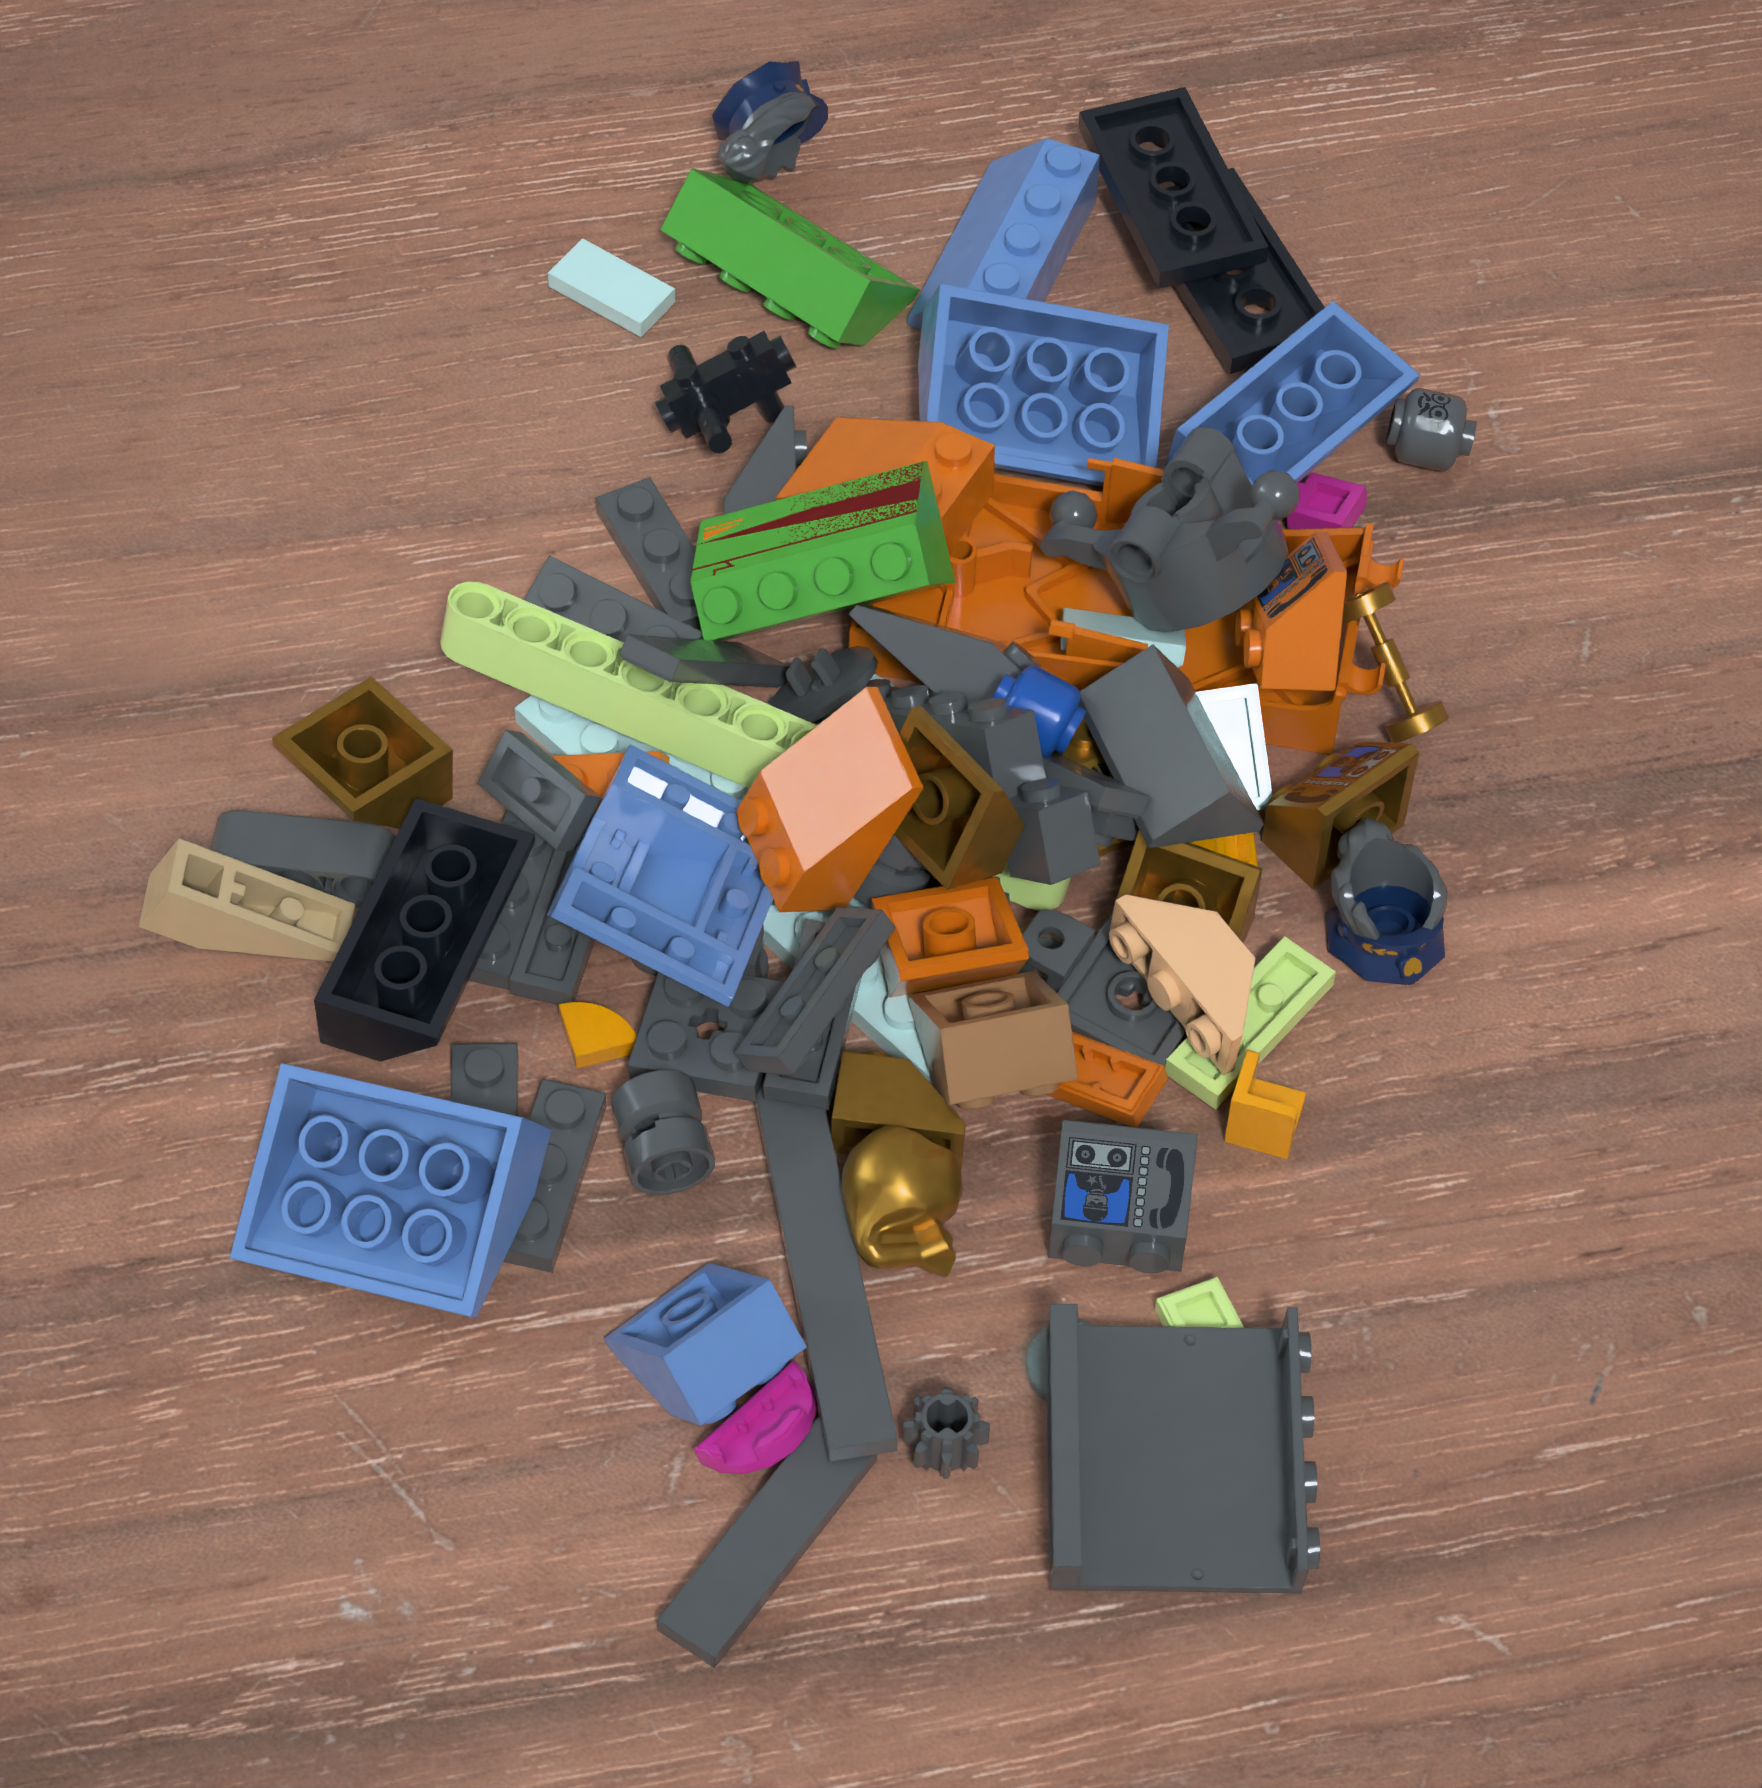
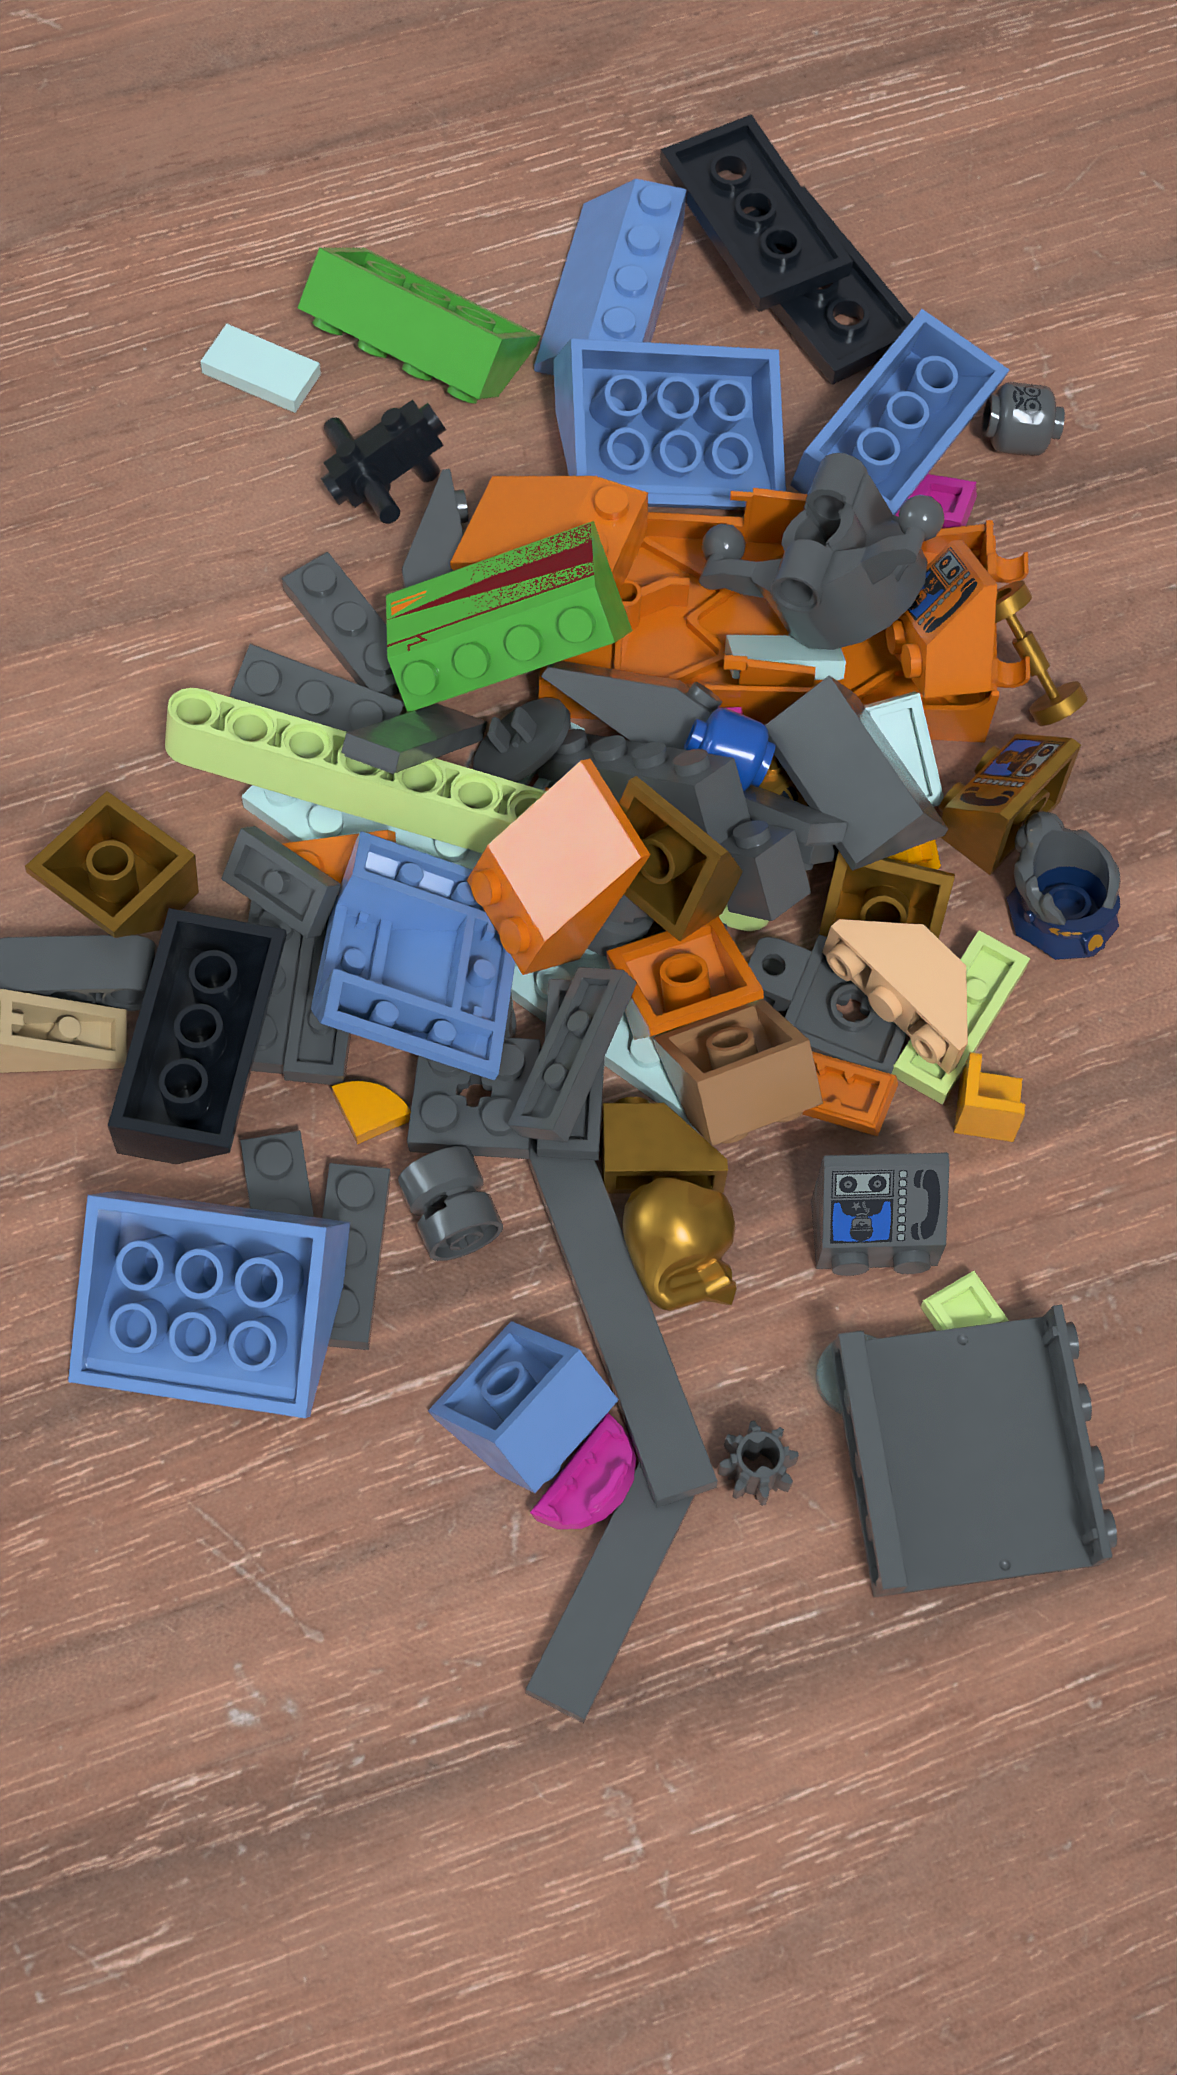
camera: 10 degrees left, 10 degrees up
(766, 121) = (376, 191): piece -> none

